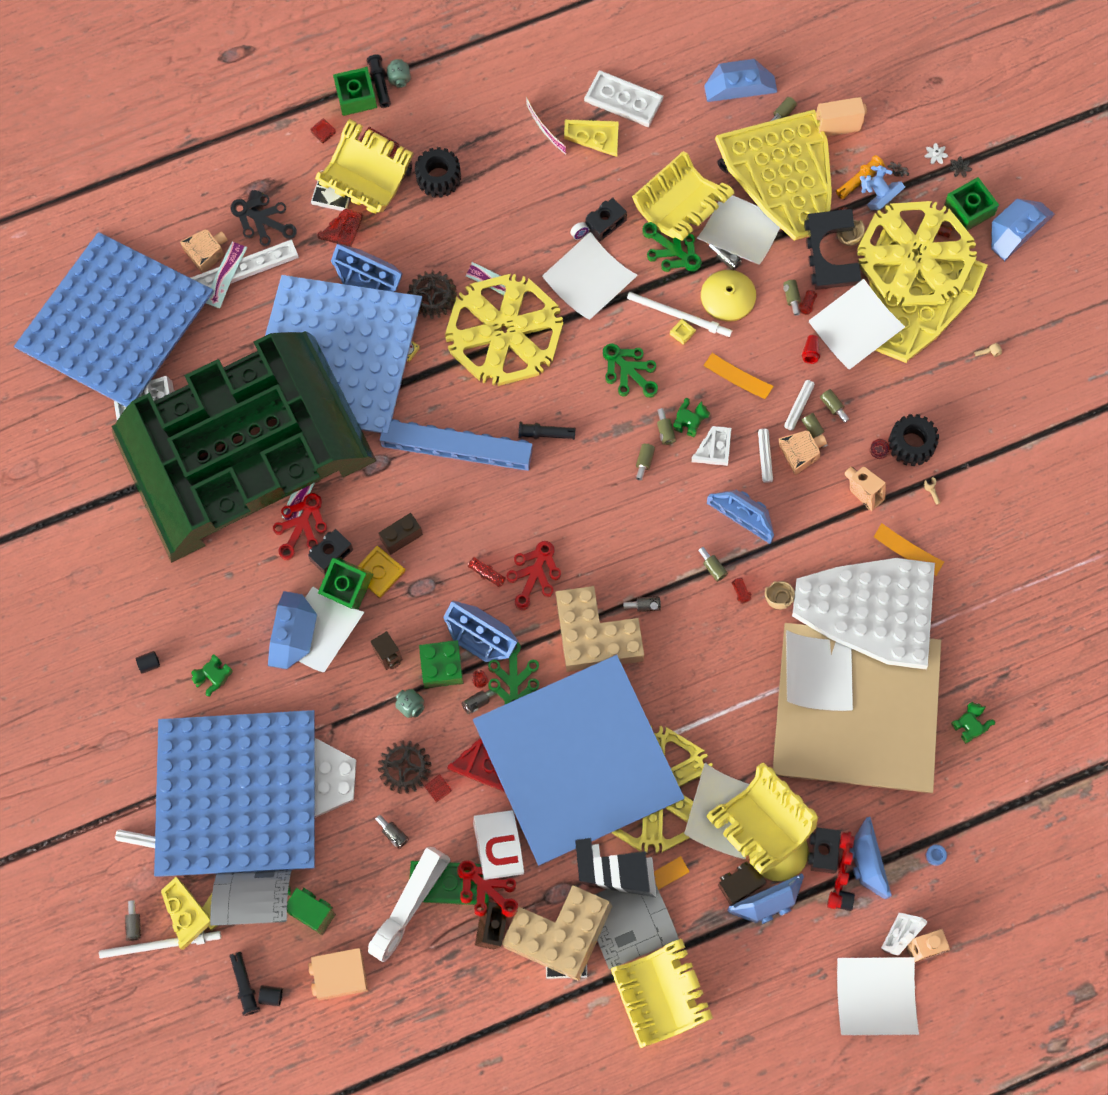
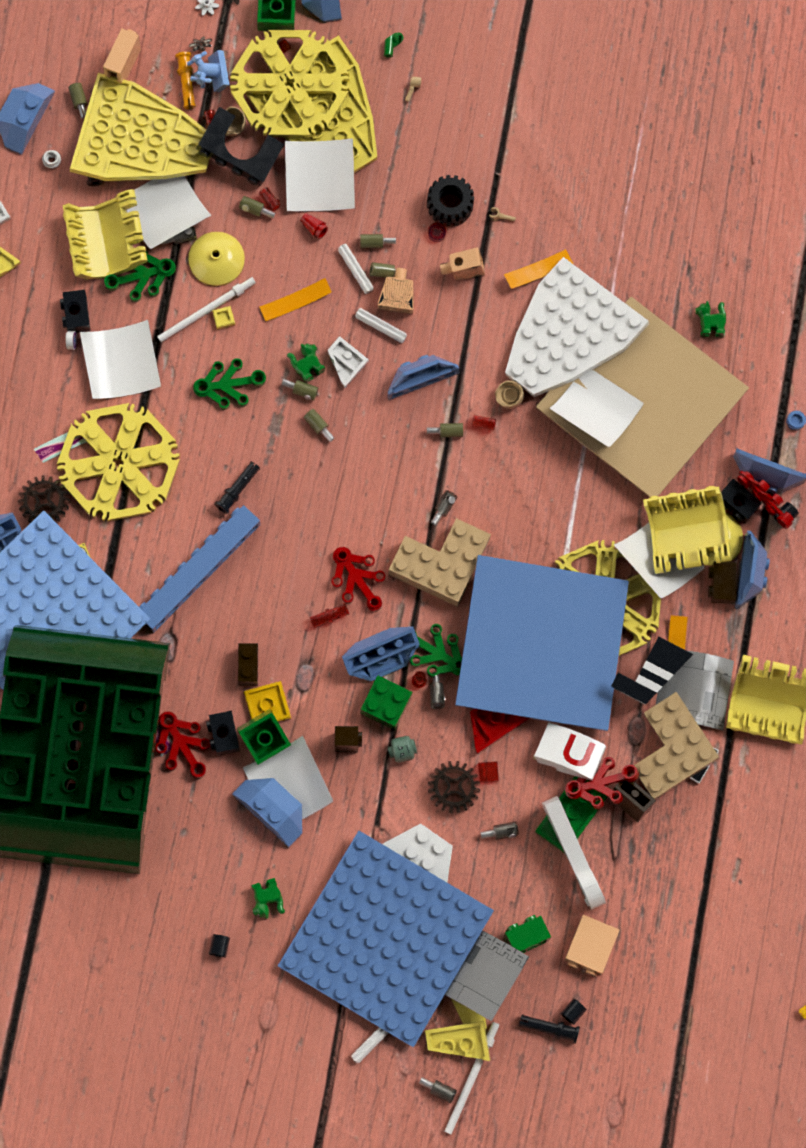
camera: 65 degrees left, 5 degrees up
(721, 120) = (51, 154): none -> white plate
(1015, 310) = (391, 42): none -> green arm

